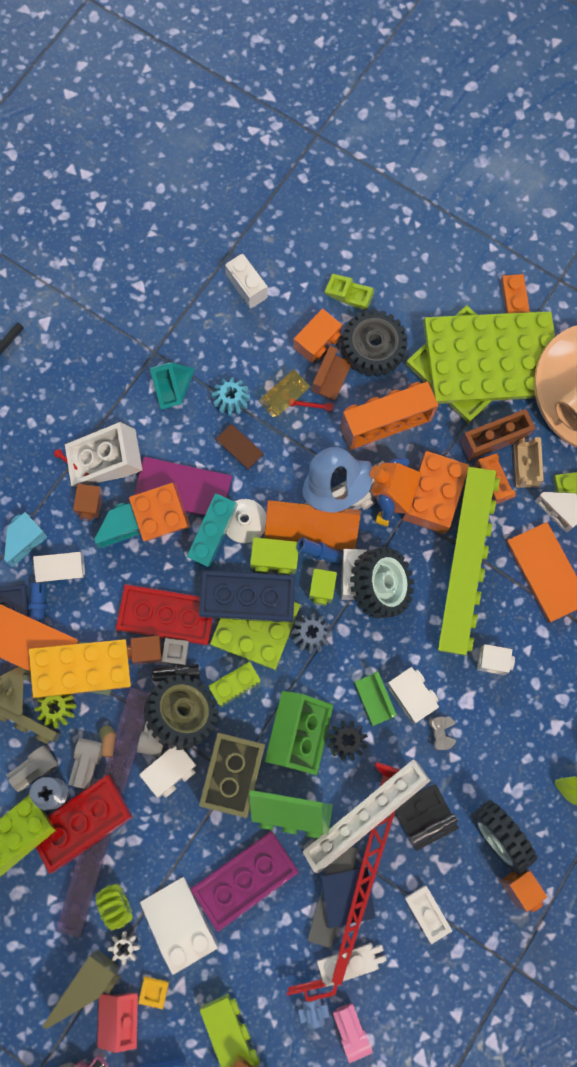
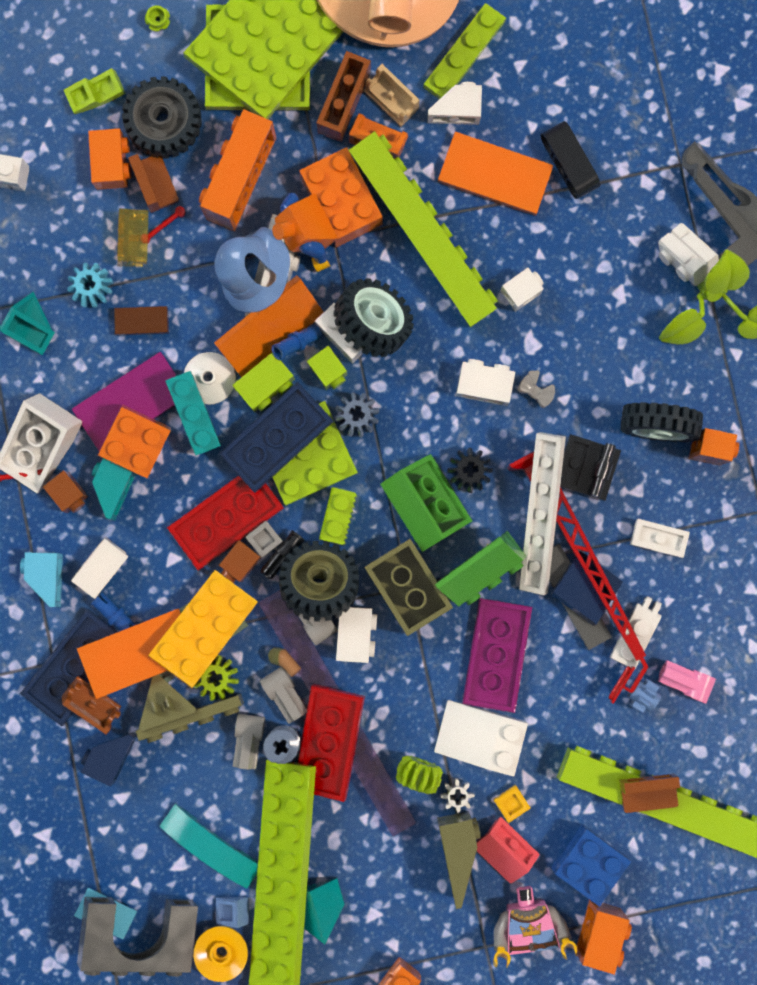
camera: 40 degrees left, 10 degrees up
(375, 699) = (458, 416): bright green panel -> none
(429, 281) = (154, 12): none -> lime plate

